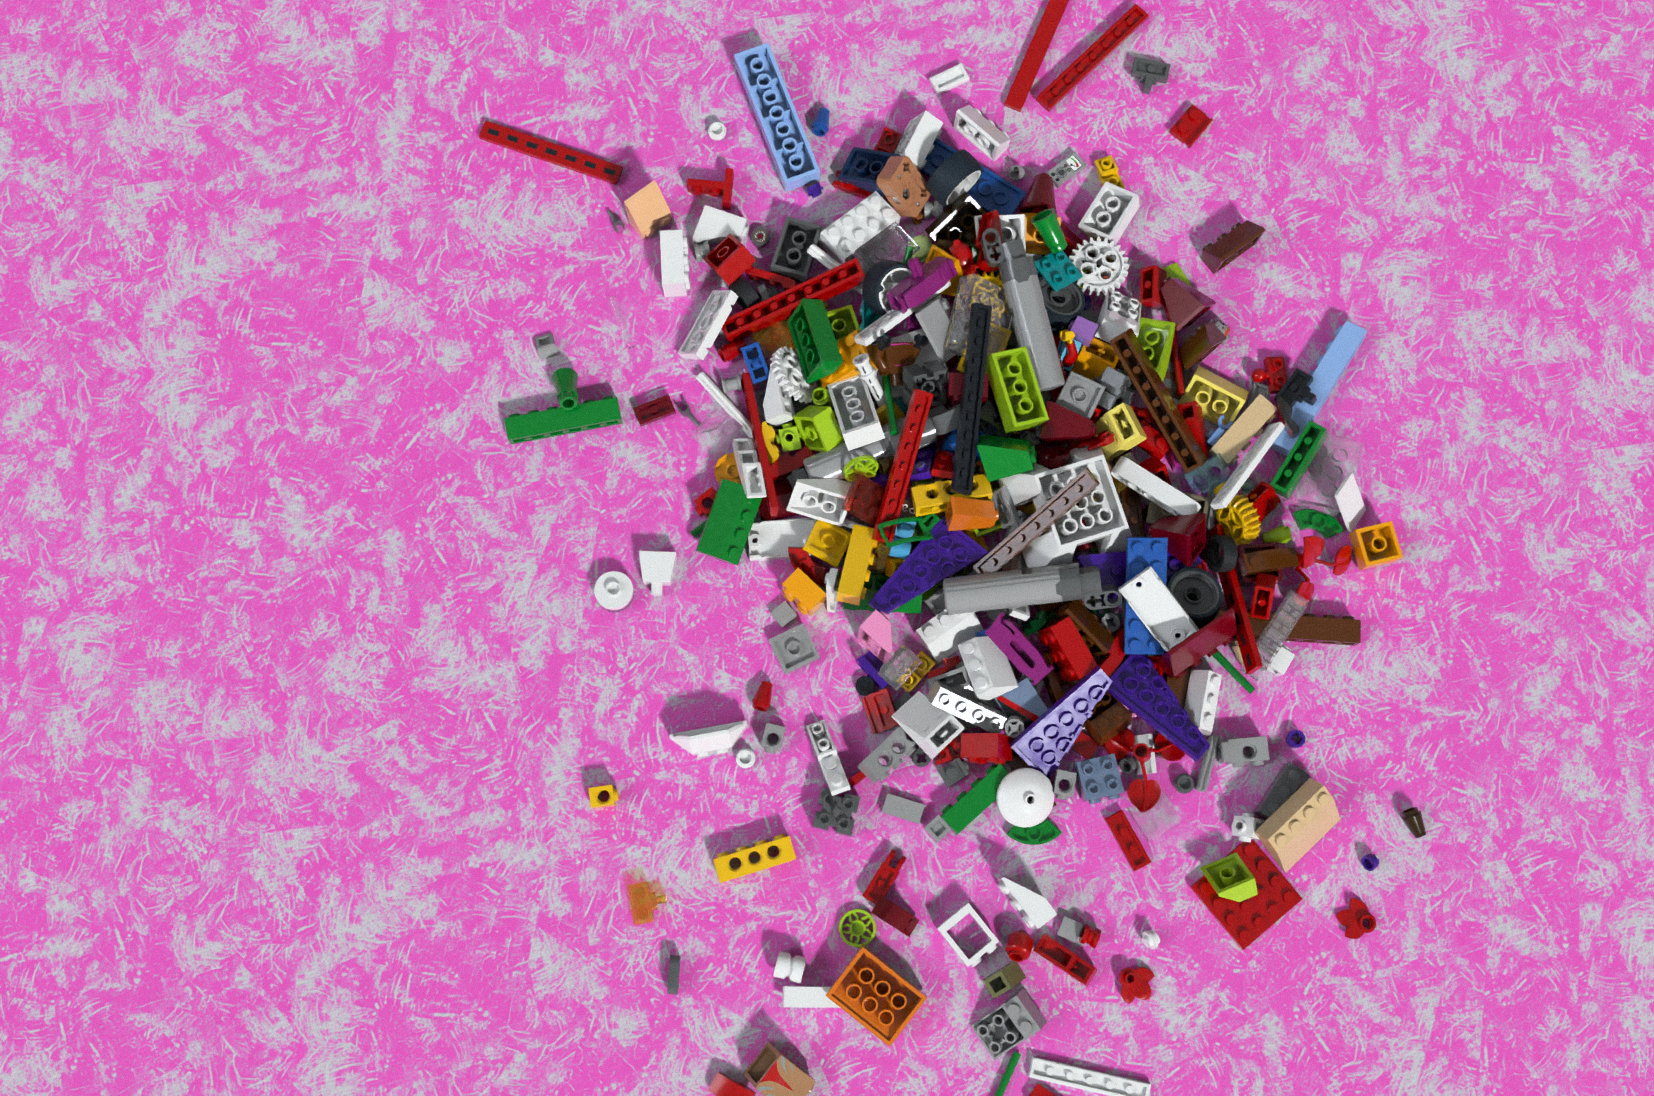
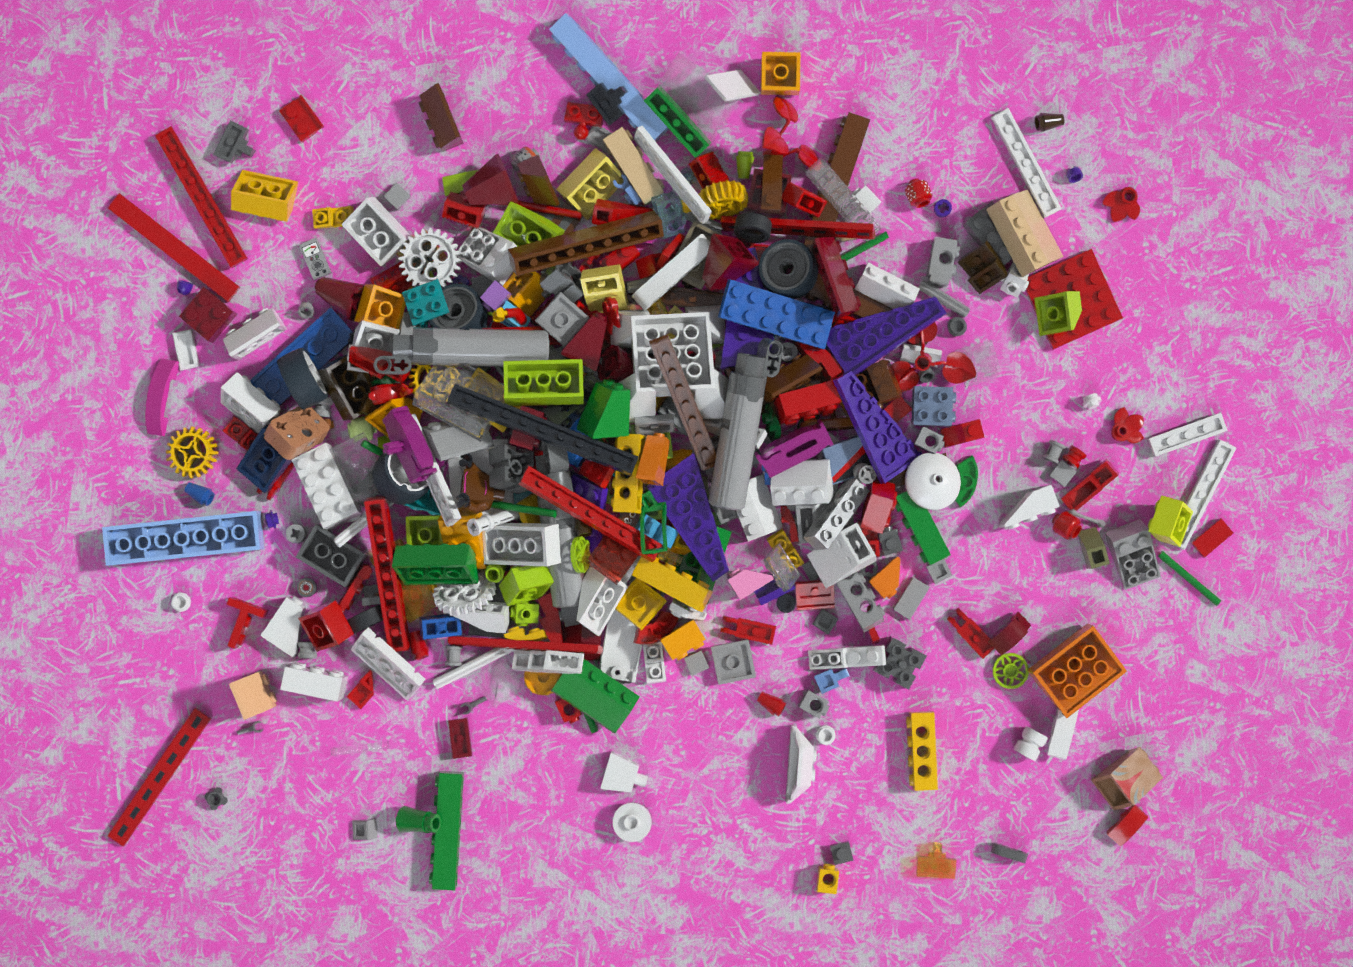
camera: 75 degrees left, 10 degrees up
(542, 201) = (215, 803): none -> dark grey plate
(632, 804) = (841, 852): none -> dark grey plate
(676, 312) = (363, 690): none -> red slope
(772, 574) = (654, 663): none -> white slope
(800, 747) = (828, 680): none -> medium blue plate
(812, 217) = (299, 532): none -> light grey wheel
(829, 658) = (750, 630): none -> red hinge
(857, 729) = (825, 621): none -> dark grey tile
(872, 105) = (175, 447): none -> yellow gear
(899, 63) = (157, 396): none -> dark pink slope
(915, 778) = (887, 579): none -> orange slope
(956, 917) = (1027, 579): white window -> none
(987, 88) = (208, 315): none -> dark red brick
(1006, 63) = (184, 287): none -> dark purple hinge
(1030, 982) = (1101, 523): none -> light grey hinge
(1050, 230) = (383, 300): green plant -> none
(1054, 1051) = (1170, 520): none -> neon yellow brick
(1080, 816) = (962, 433): none -> red slope
(1089, 913) = (1053, 451): none -> light grey bush
(1110, 109) = (264, 195): none -> yellow slope
(1127, 840) = (995, 395): red tile -> none
(1146, 227) = (397, 196): none -> light grey tile
(1146, 1048) = (1187, 434): none -> white plate
(1158, 608) = (794, 307): white piece -> none
(1175, 482) = (670, 250): none -> red plate
(1250, 792) = (983, 267): none -> dark brown slope
(1285, 413) = (629, 121): clear smoke slope -> none
(1303, 710) = (918, 193): none -> red head
(1318, 521) = (740, 119): green tile -> none
(1365, 811) = (1026, 163): none -> white tile

